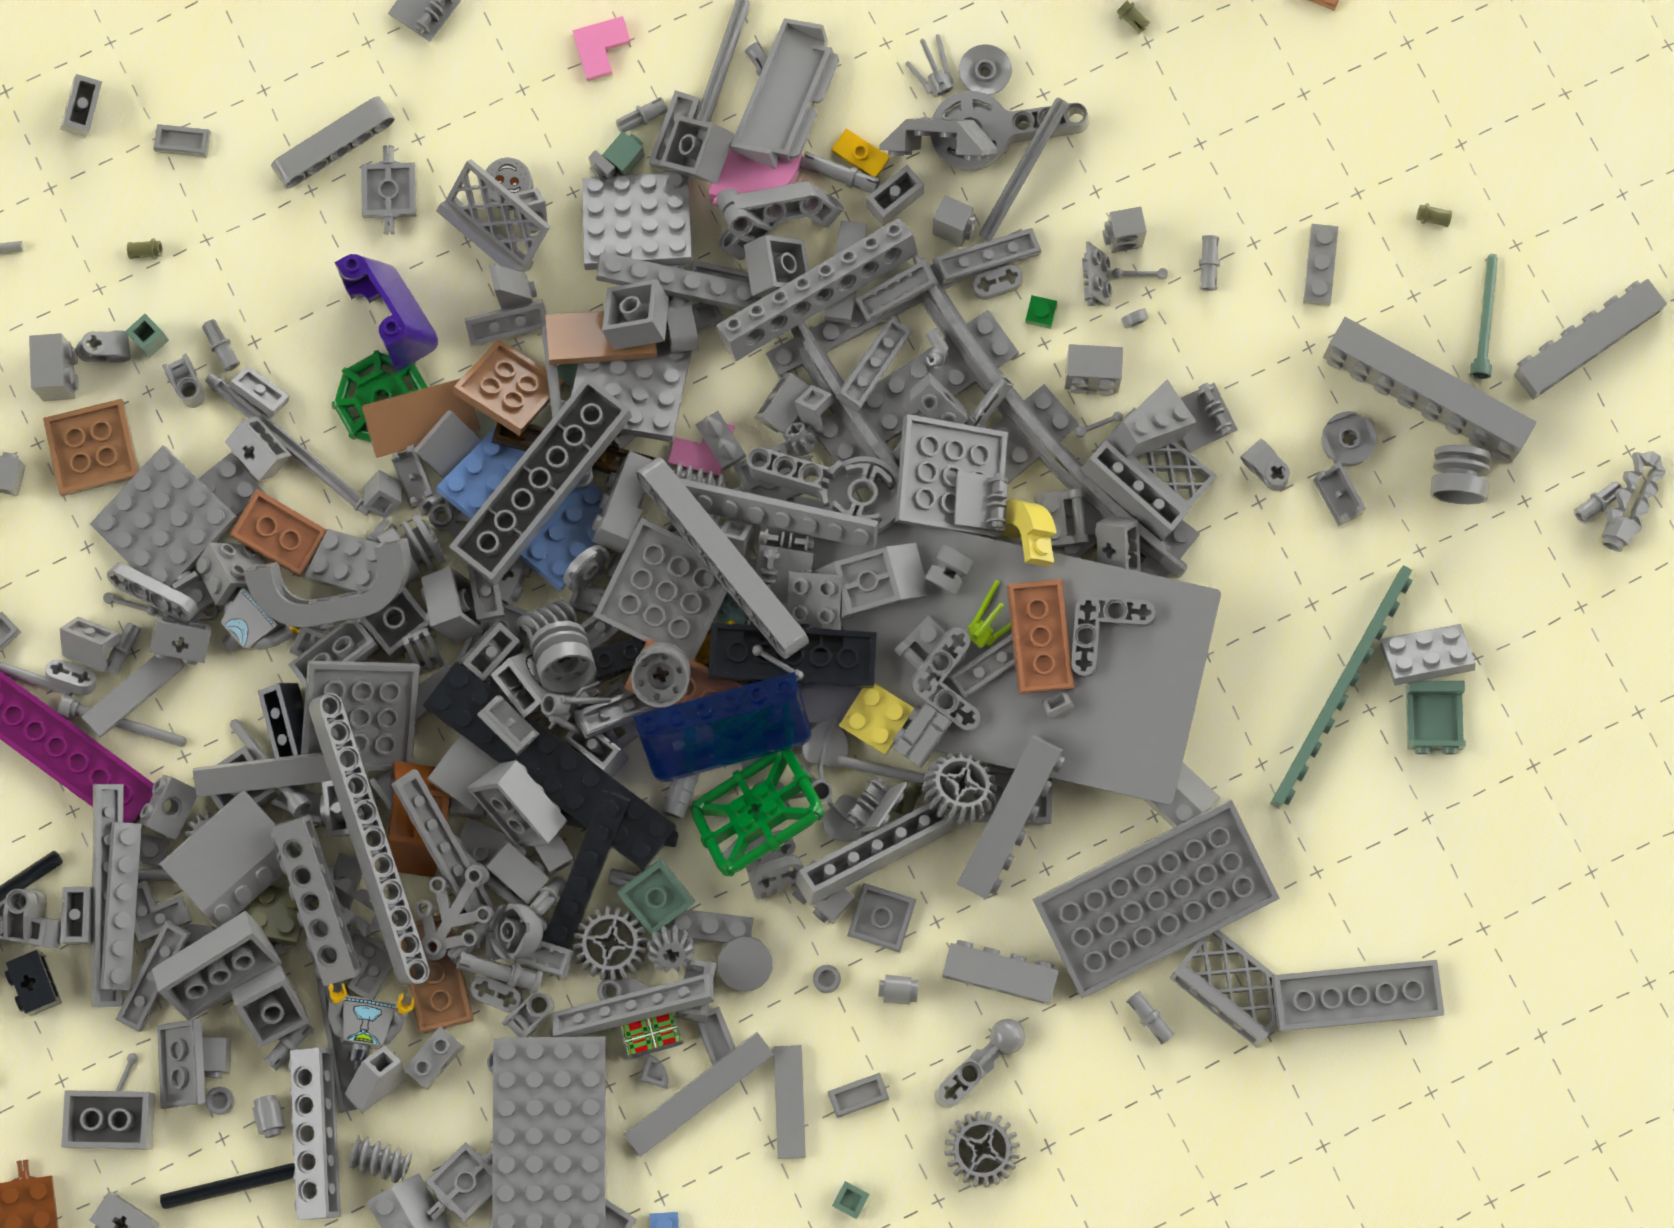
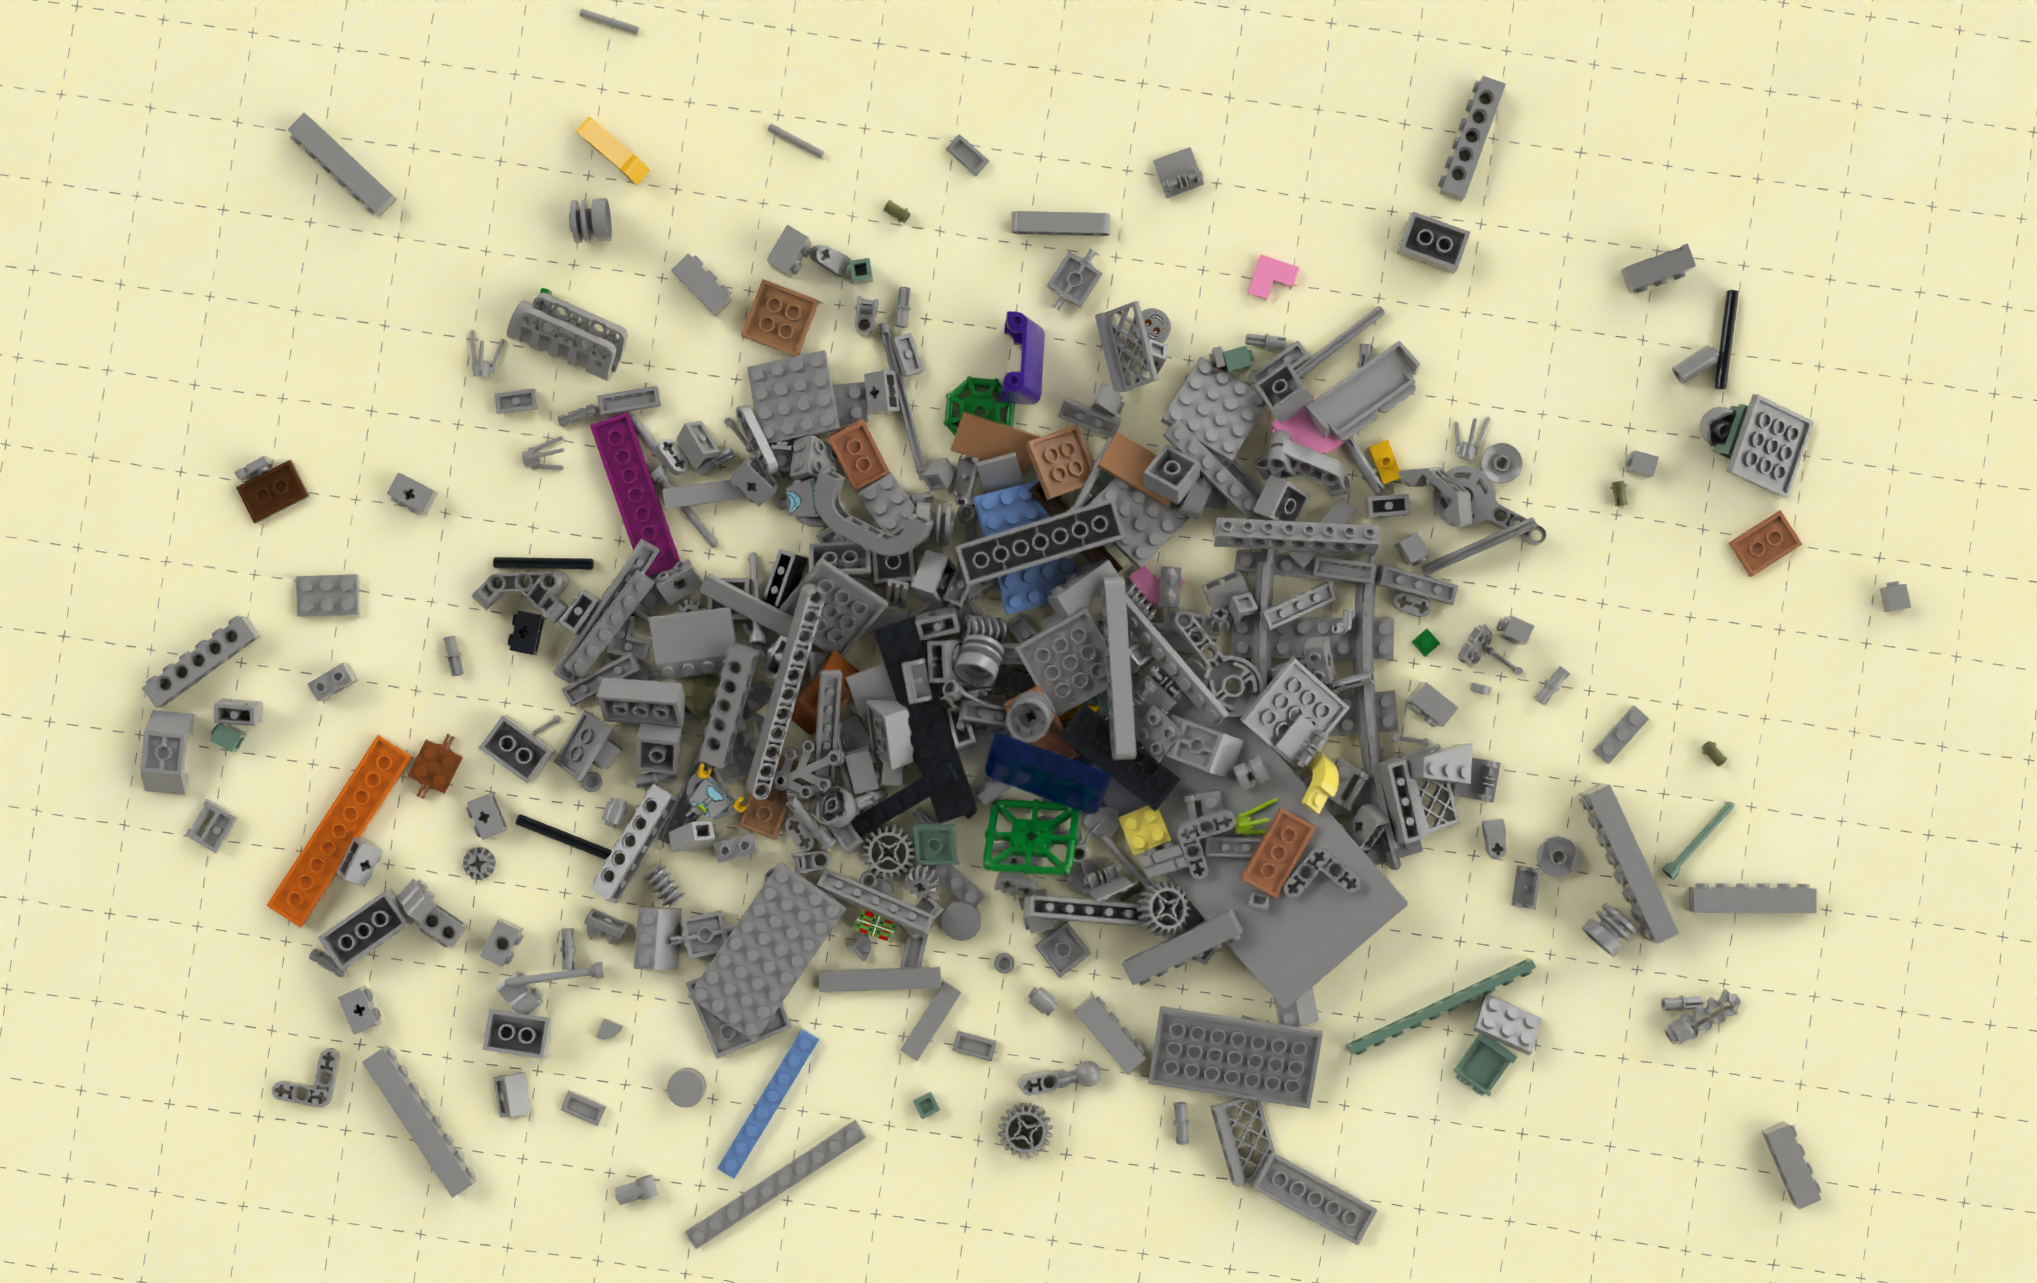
camera: 30 degrees right, 10 degrees up
(81, 105) = (919, 89): light grey brick -> none
(586, 568) = (1032, 612): light grey tile -> none
(758, 650) = (1100, 741): light grey hinge -> none

